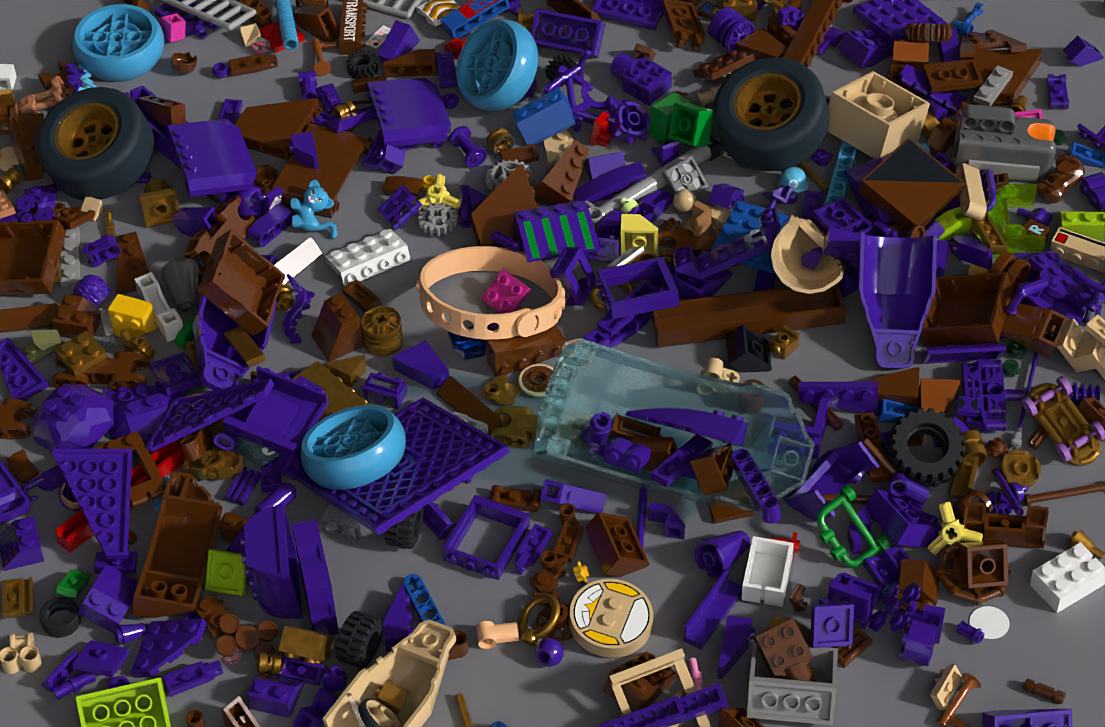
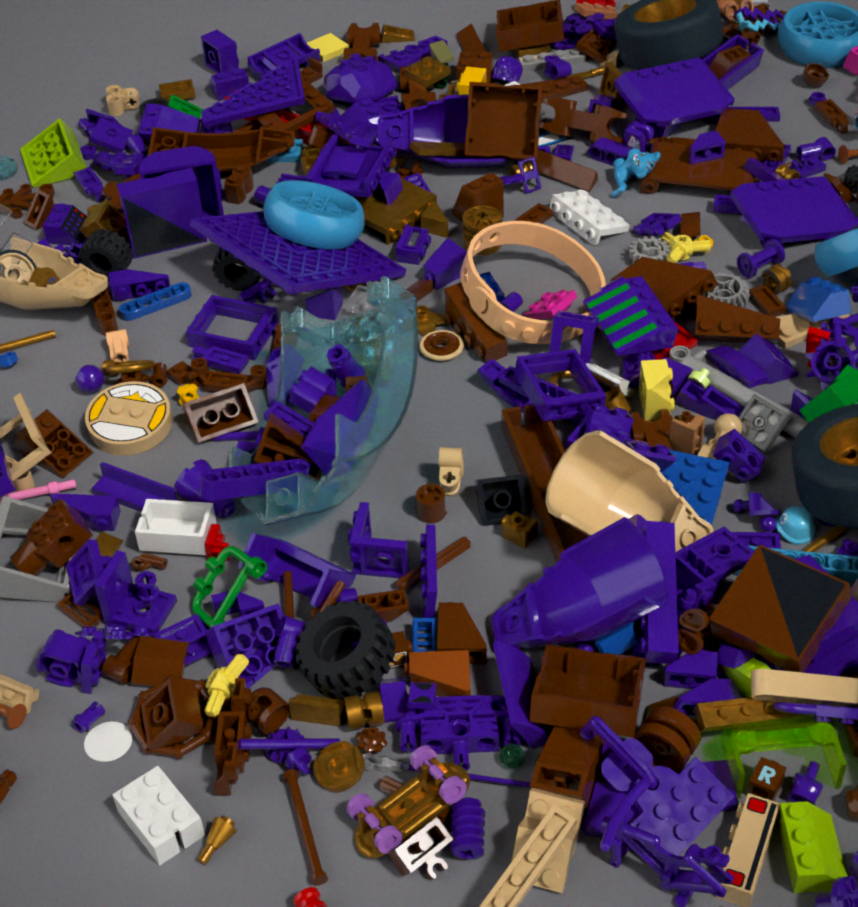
camera: 85 degrees right, 5 degrees down
(390, 158) = (721, 207): dark purple brick -> none

